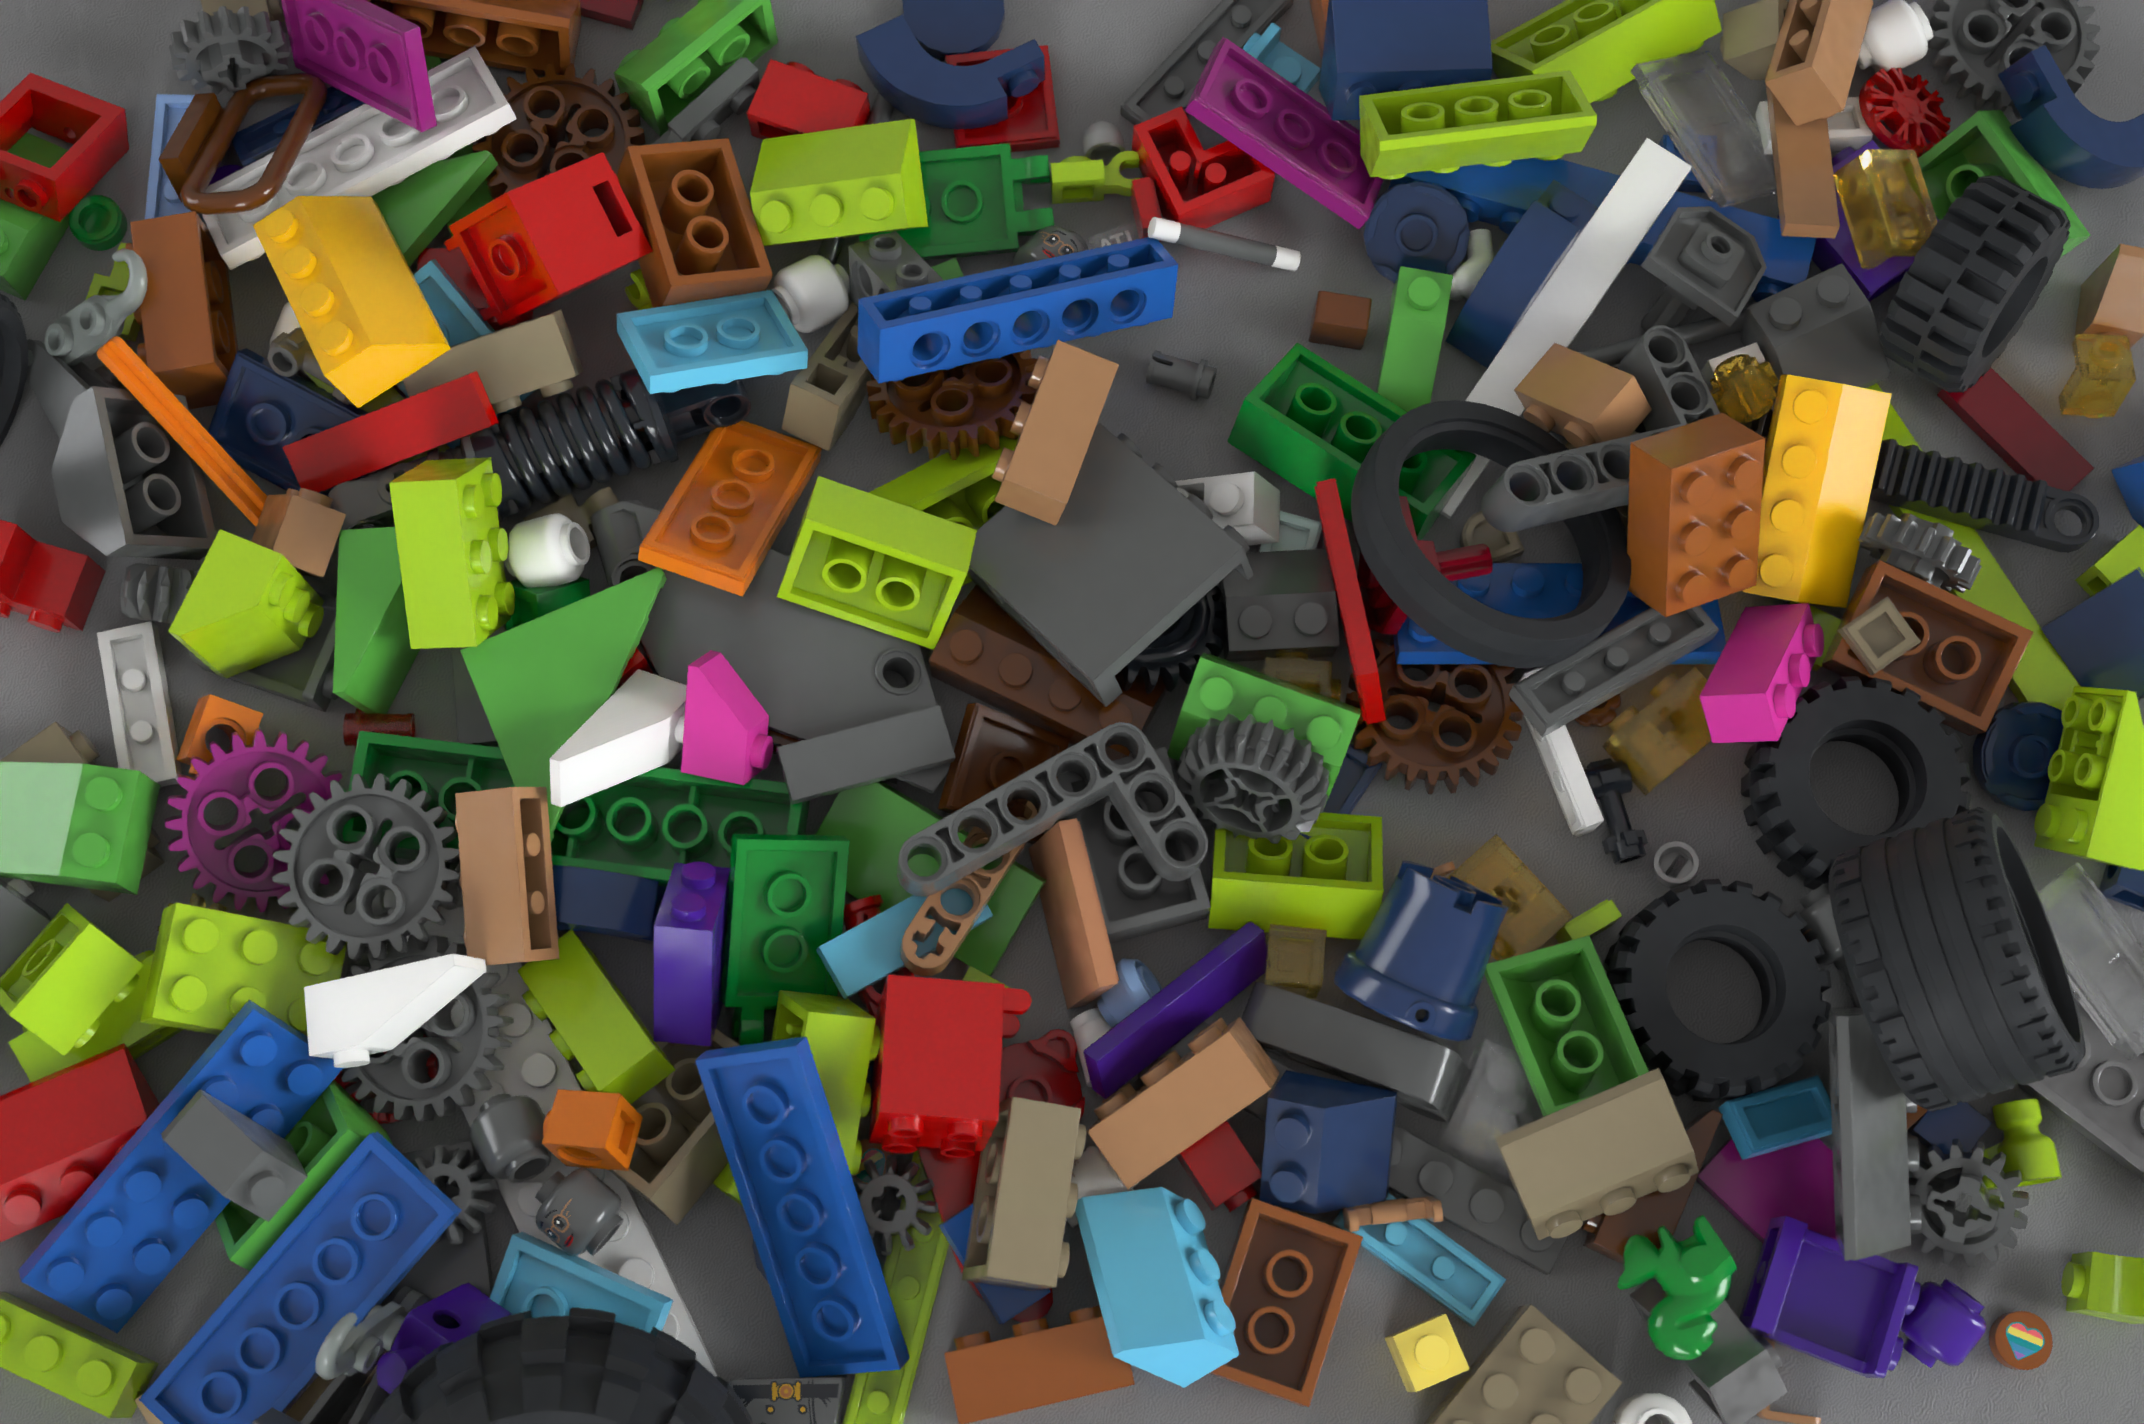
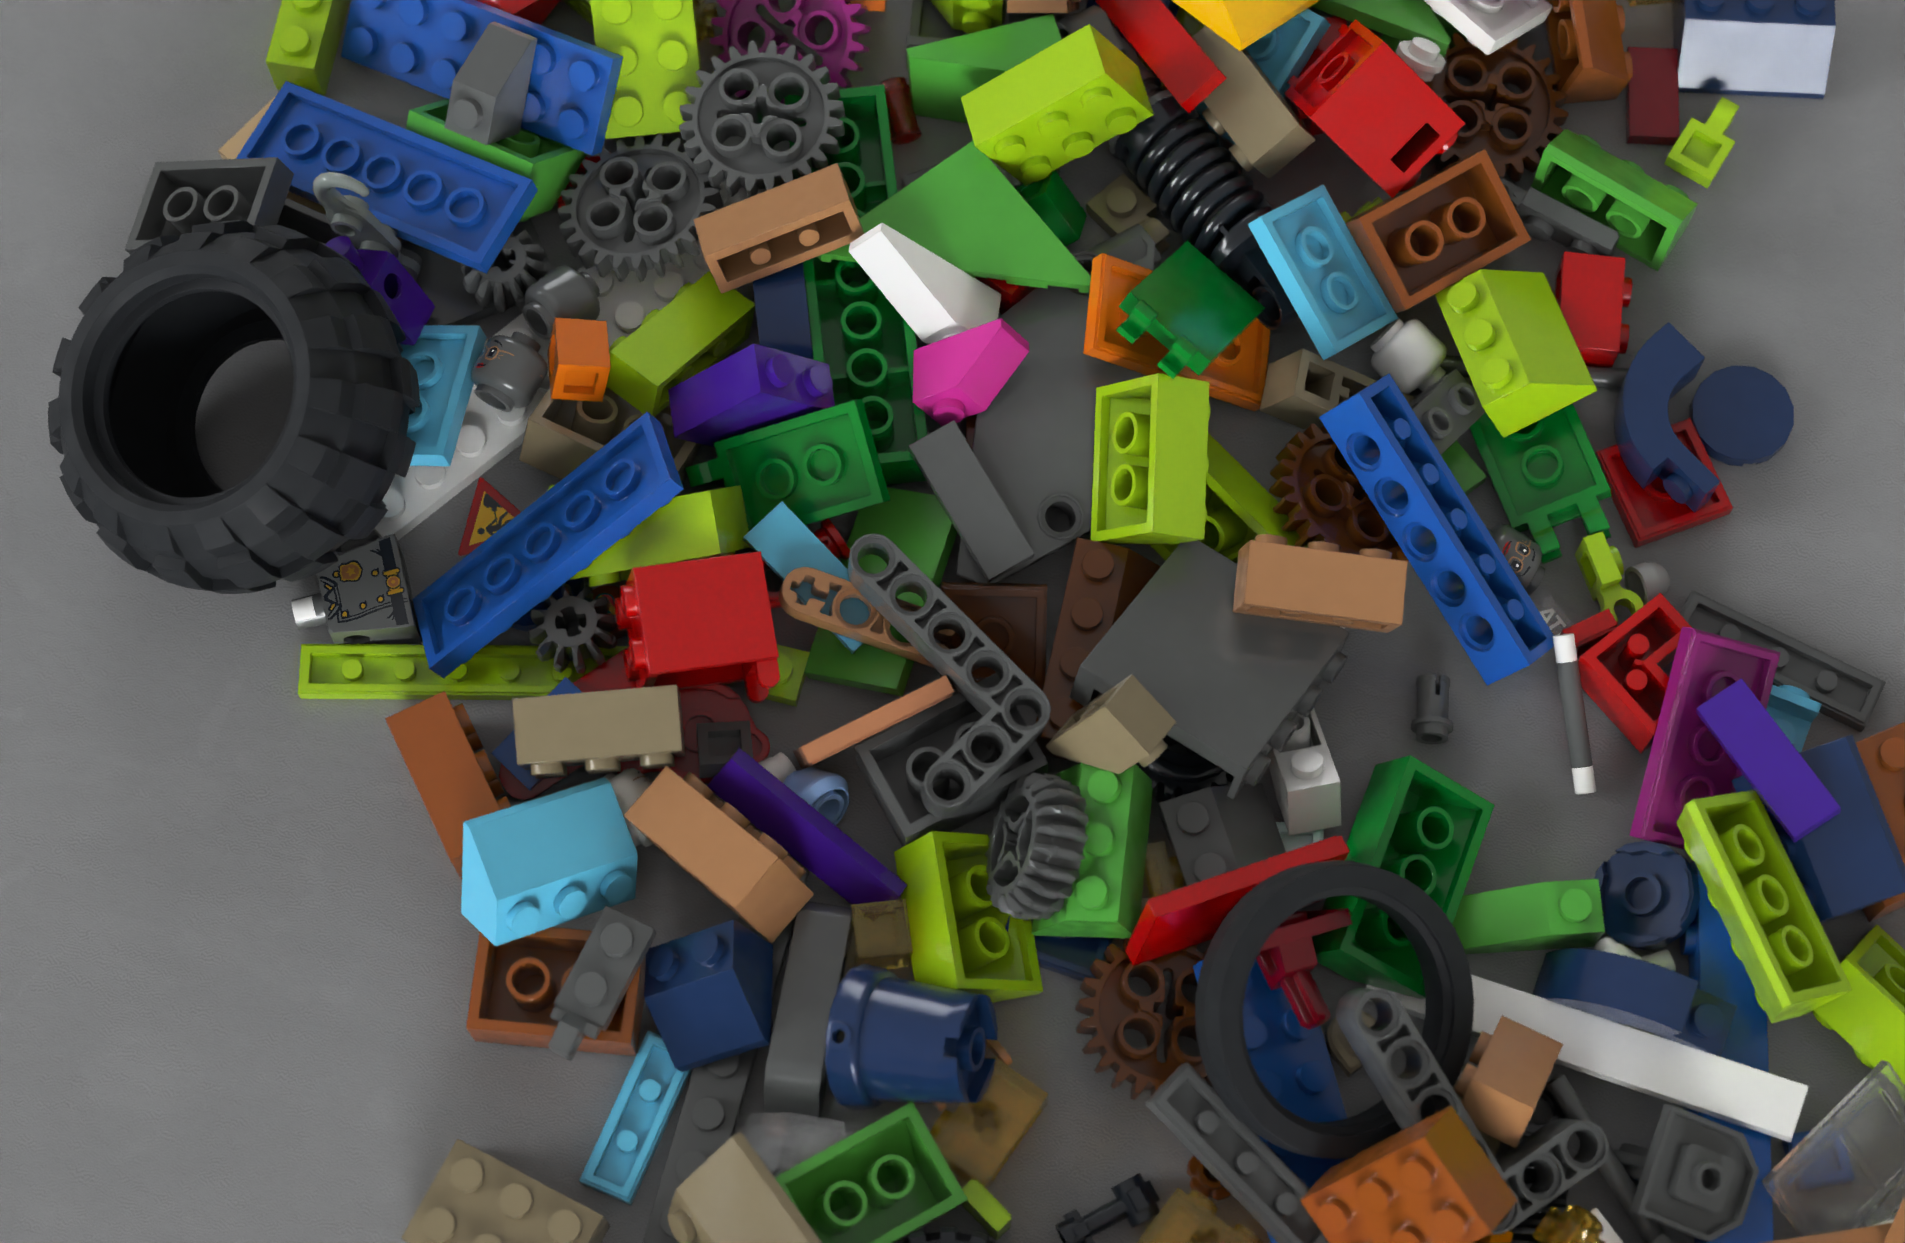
camera: 80 degrees right, 5 degrees down
(382, 1007) = (641, 161): white slope -> none
(495, 181) = (1421, 57): none -> white plate
(547, 551) = (1090, 193): white head -> none
(727, 478) = (1188, 310): none -> green tile
(728, 1273) = (486, 516): none -> sticker
(1061, 1074) = (719, 742): none -> dark grey plate
(1164, 667) = (1115, 729): none -> dark tan slope
(1221, 1168) = (677, 907): red brick -> none
(1293, 1254) = (599, 980): none -> dark grey hinge
(1338, 73) = (1768, 760): none -> dark purple tile
(1340, 320) = (1533, 843): reddish brown piece -> none
(1392, 1211) = (664, 1070): medium nougat piece -> none
(1427, 1353) = (543, 1137): light yellow brick -> none
(1567, 778) = (1125, 1161): white tile -> none

